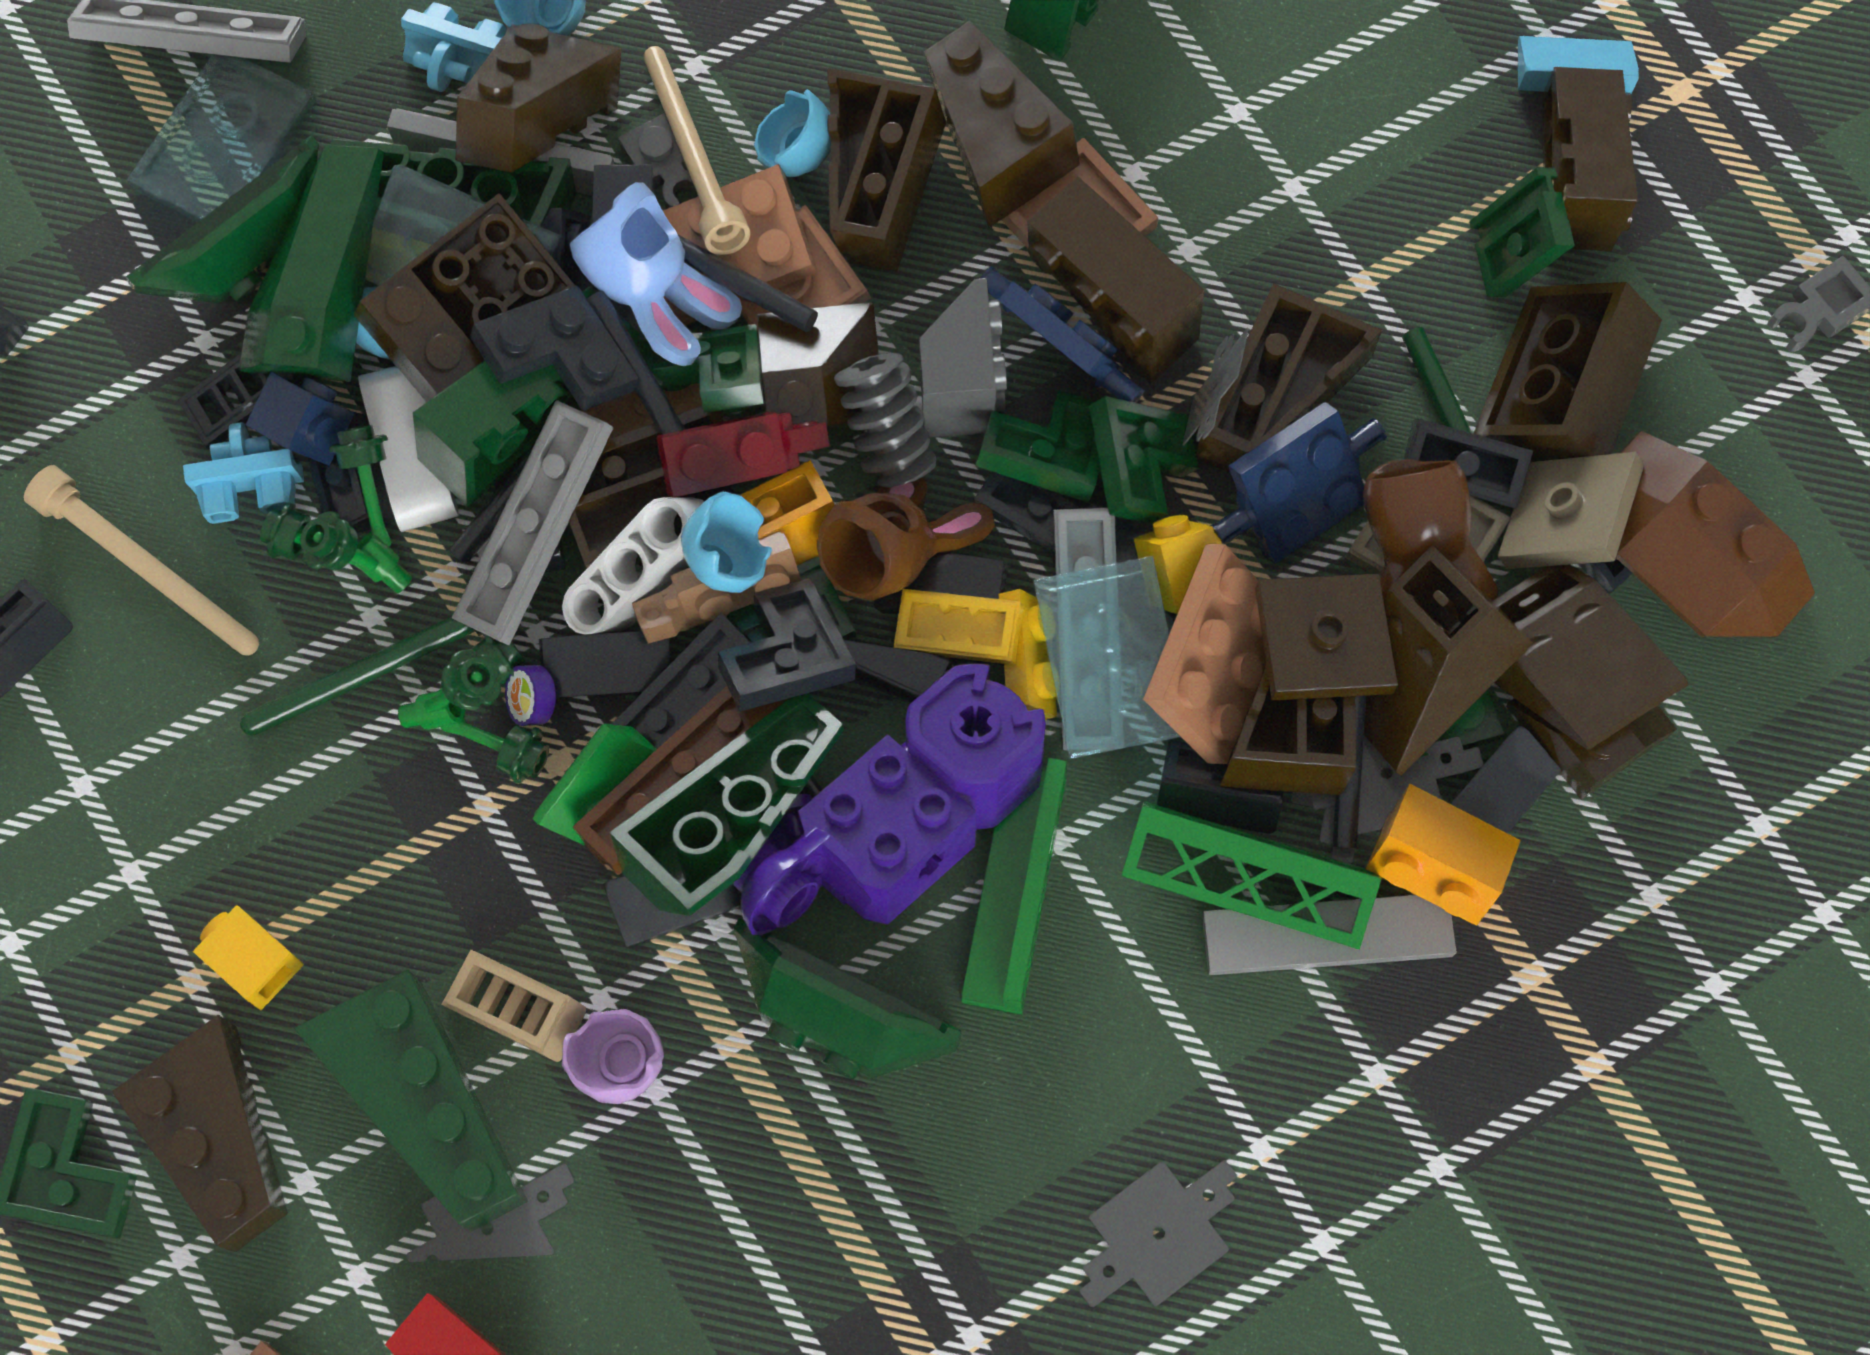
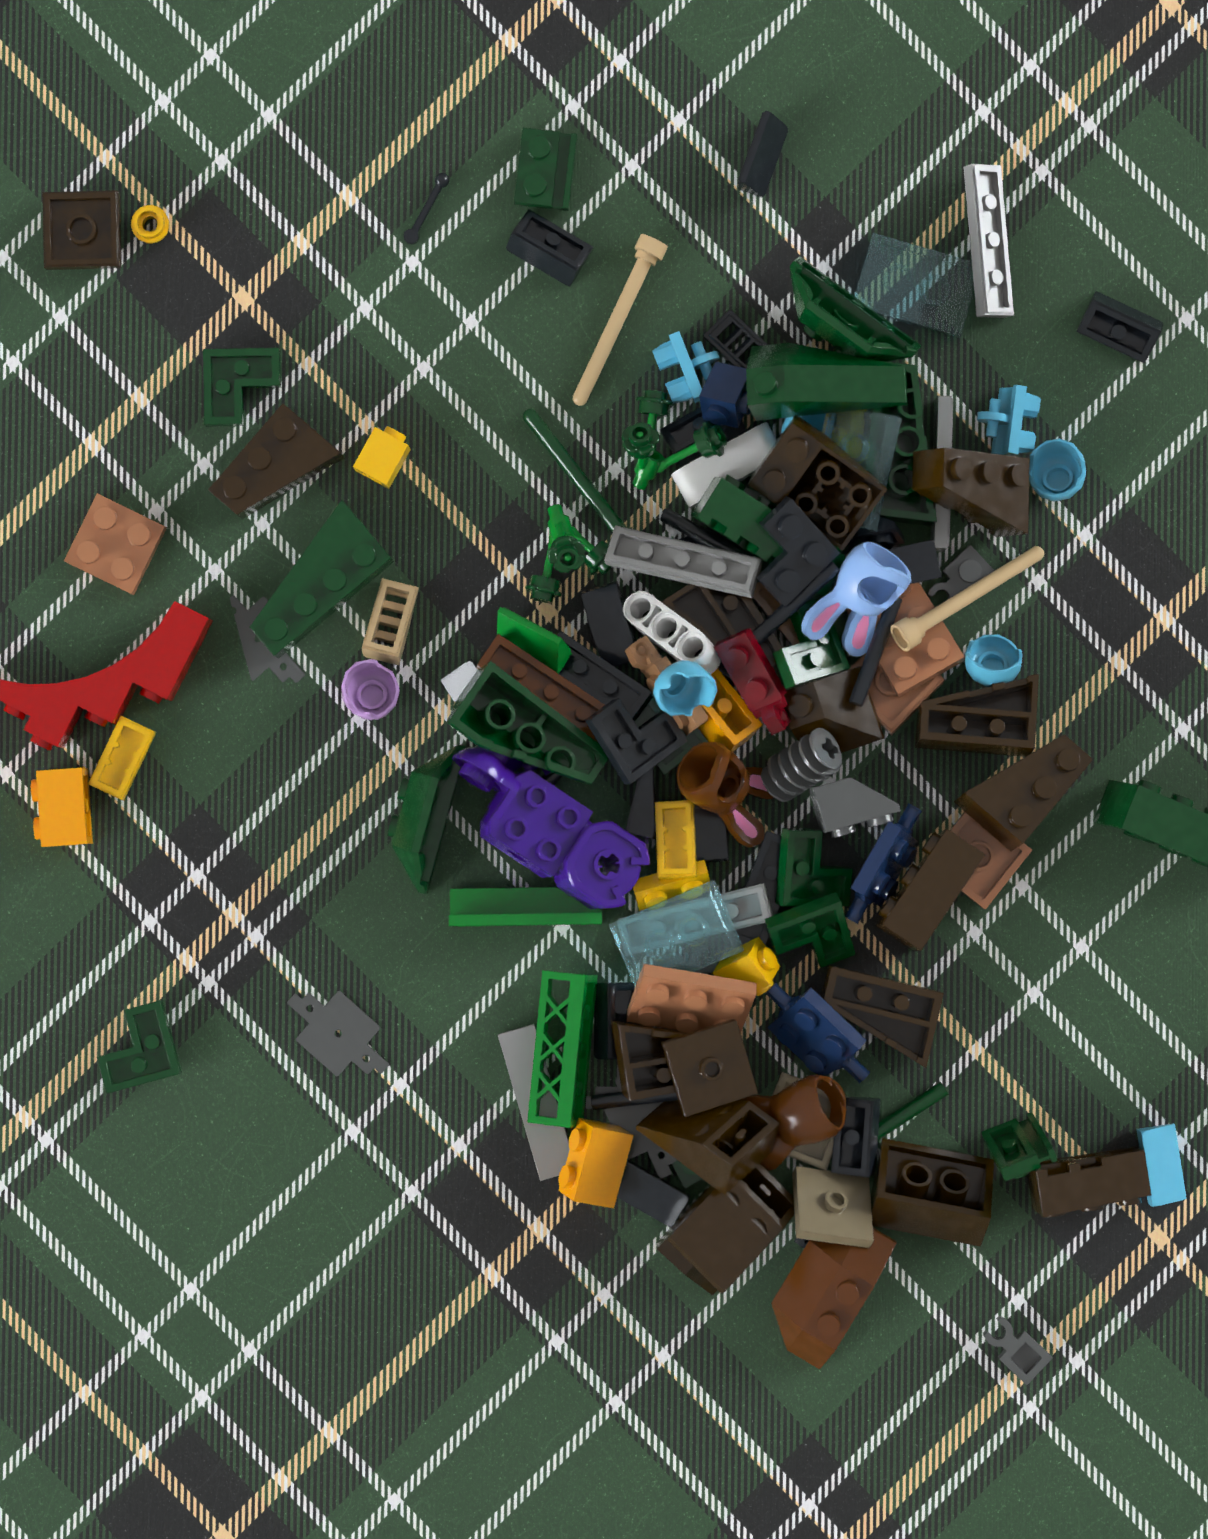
camera: 80 degrees right, 15 degrees up
(530, 695) = (580, 584): tile -> none
(1207, 399) = (857, 966): dark grey piece -> none

